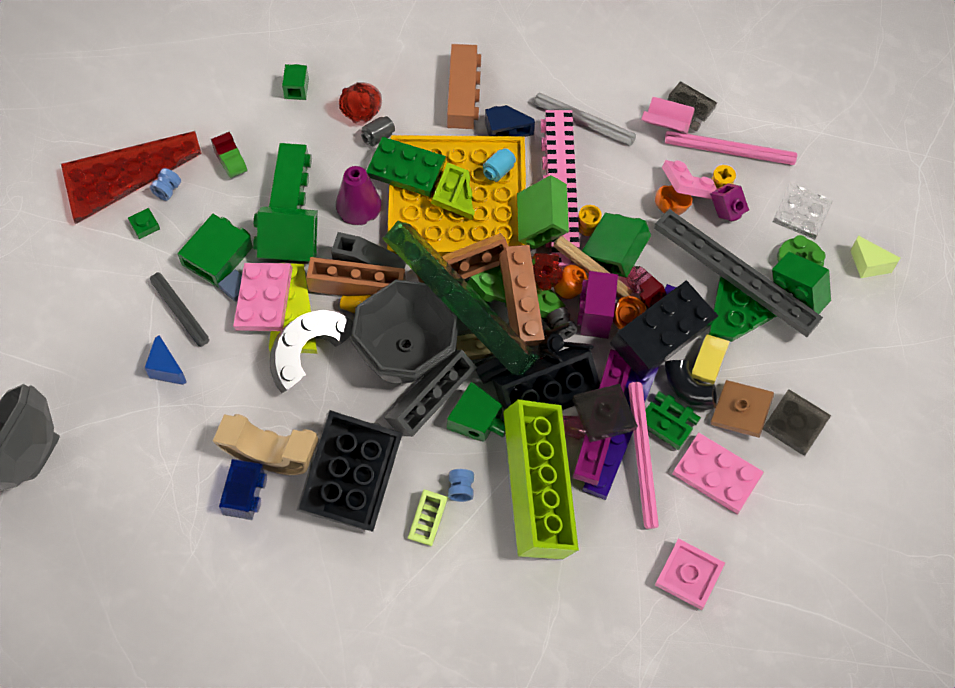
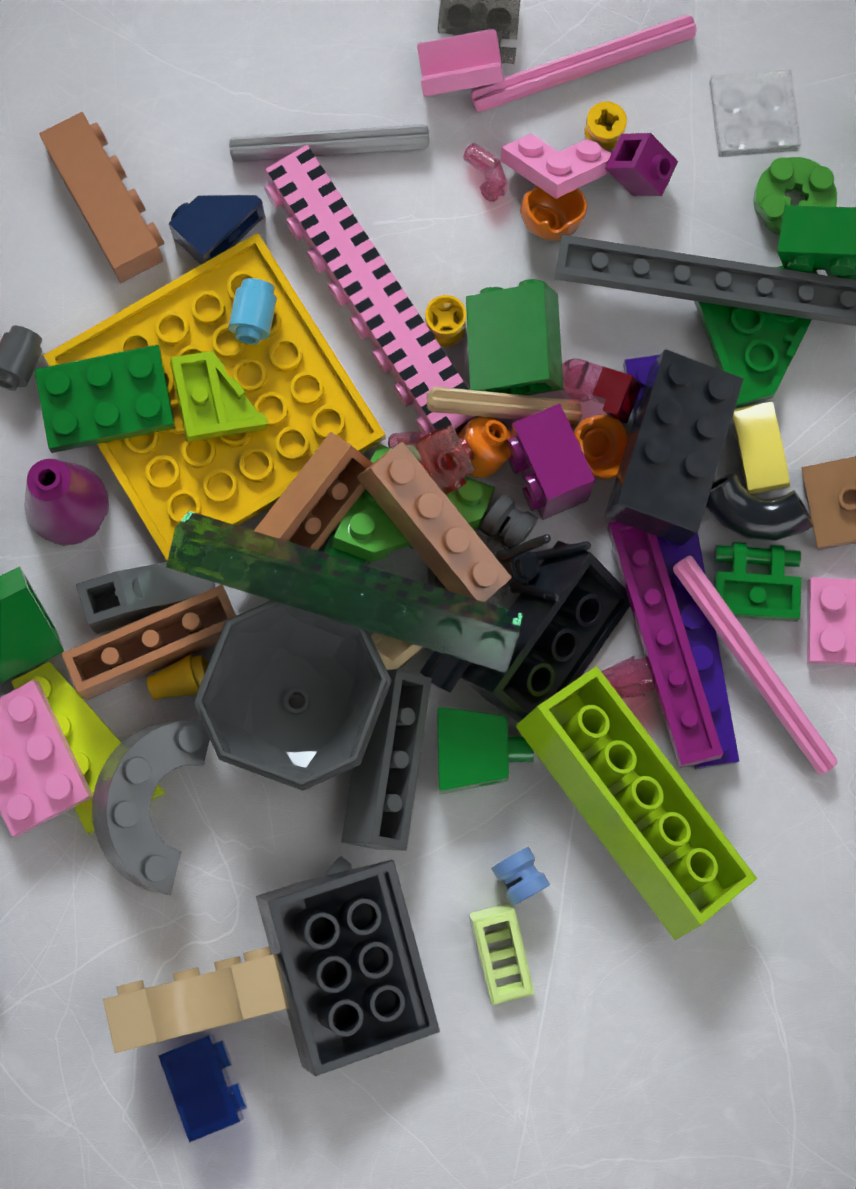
camera: 30 degrees left, 15 degrees up
(542, 212) = (374, 357): bright green brick -> none
(604, 412) = (667, 638): clear smoke plate -> none
(655, 169) = (490, 165): none -> clear pink arm

